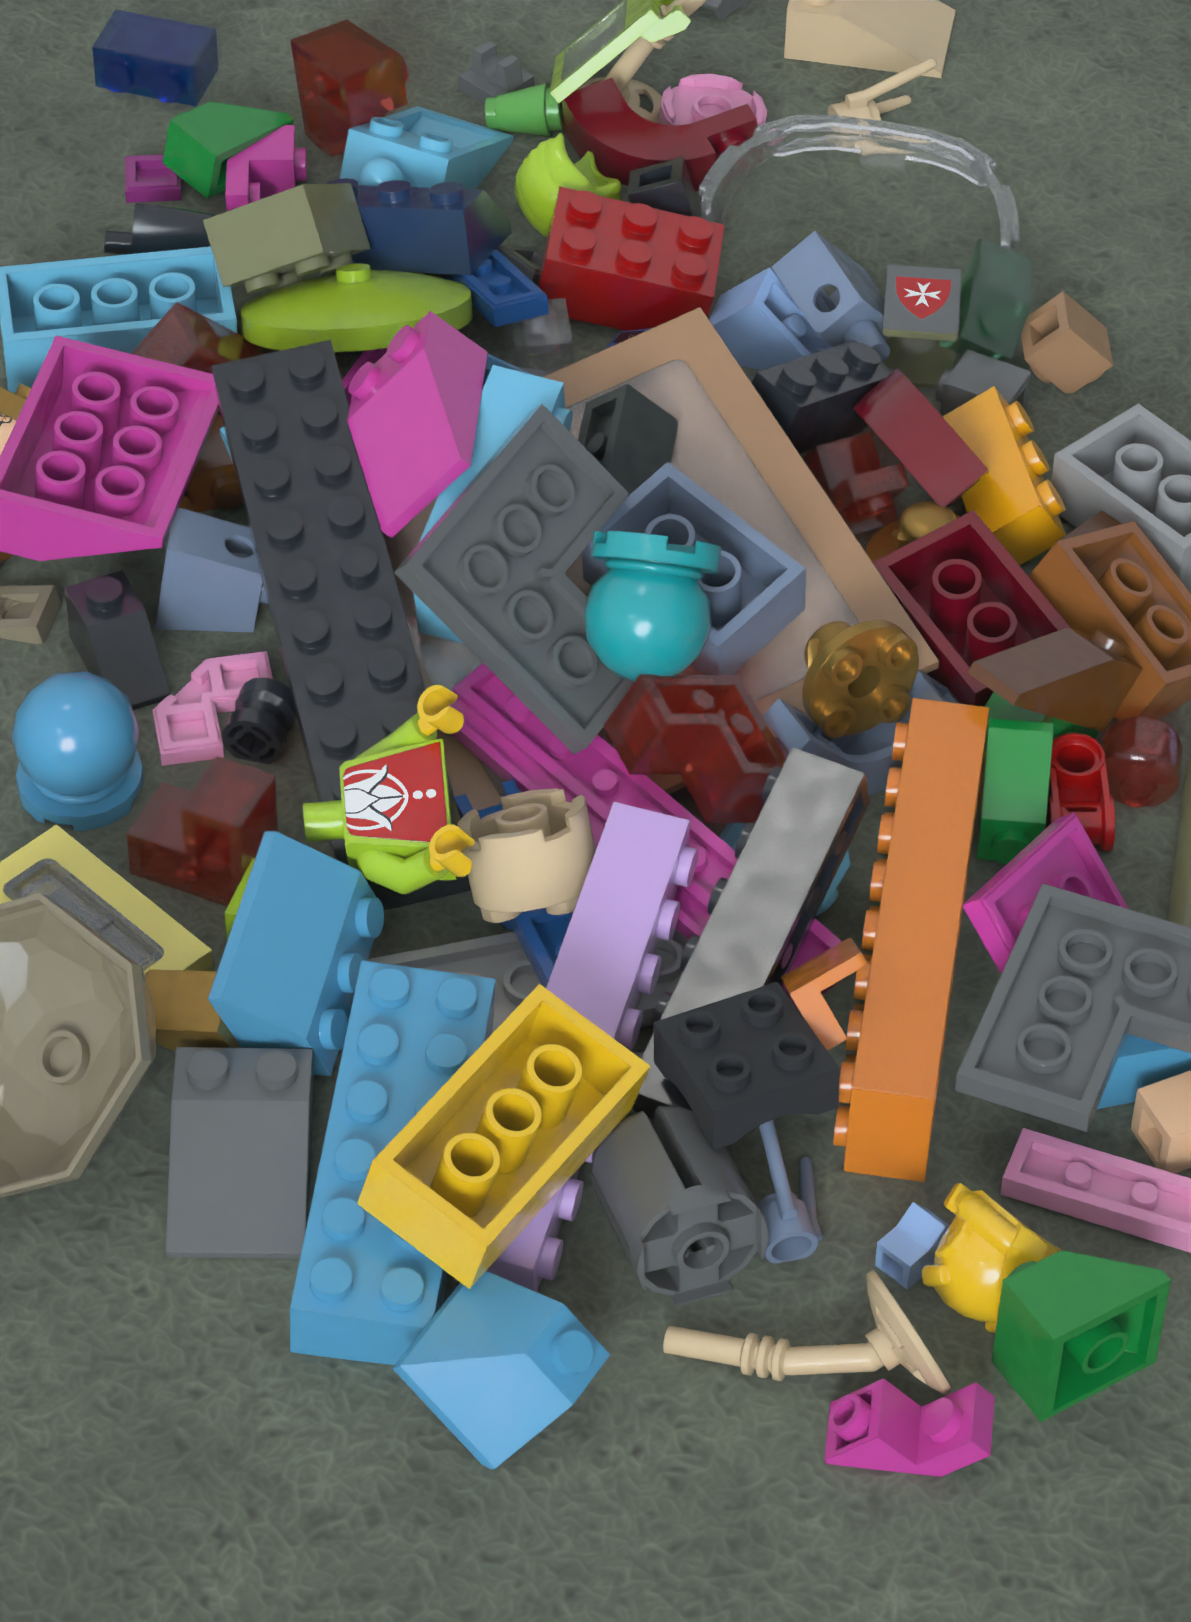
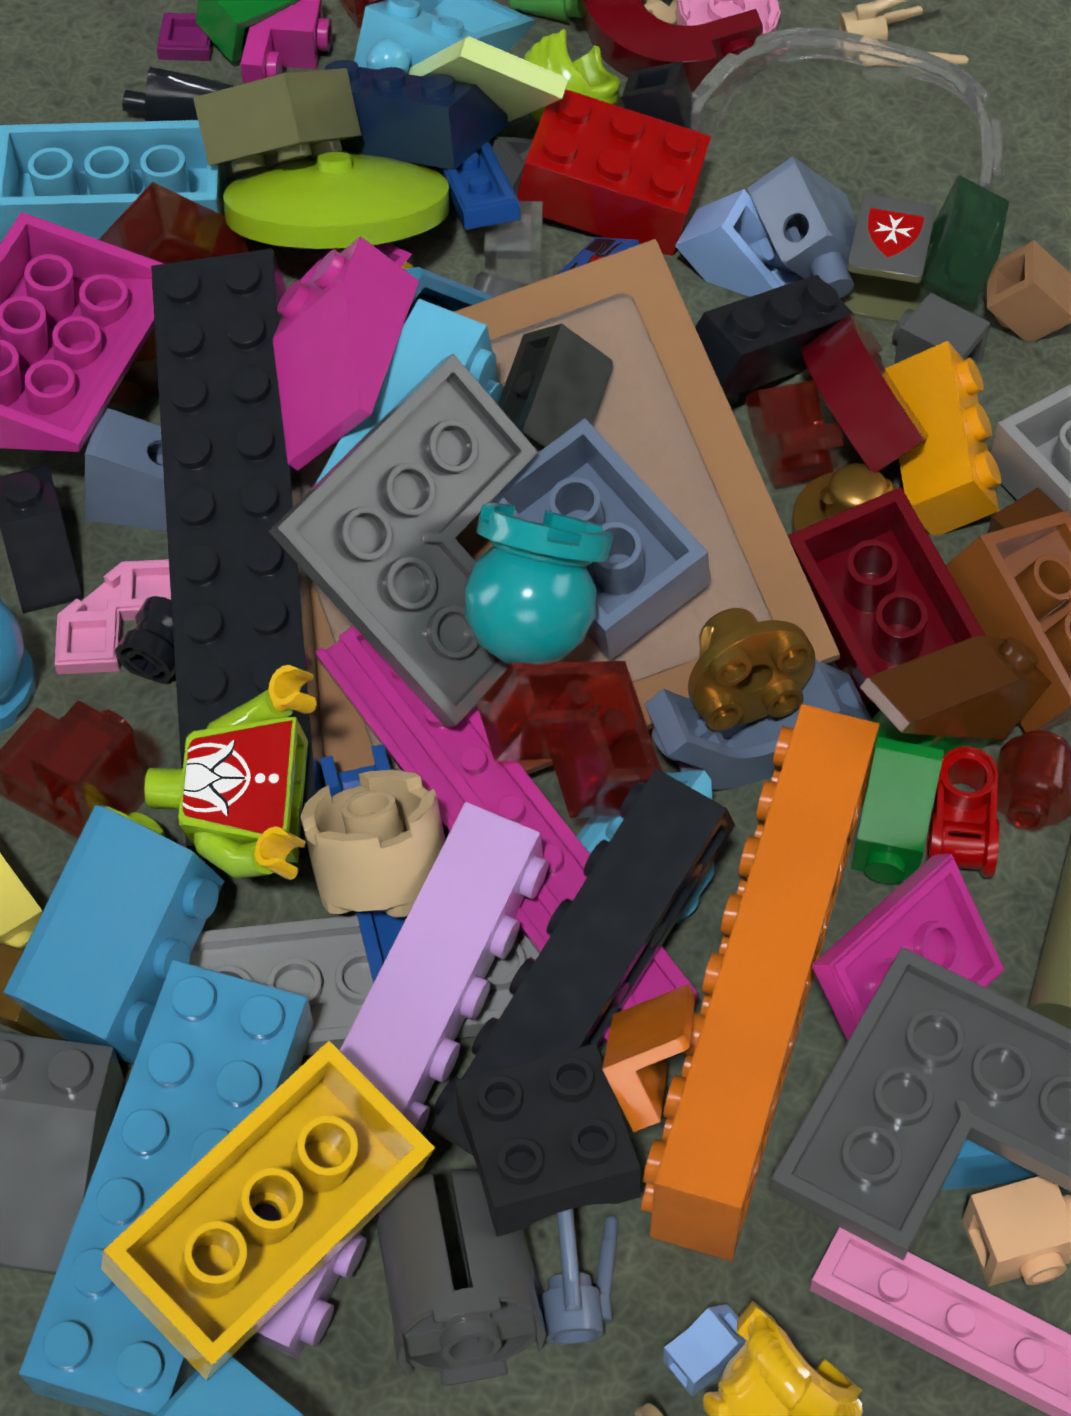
camera: 10 degrees right, 10 degrees up
(513, 180) = (507, 79): none -> yellowish green tile

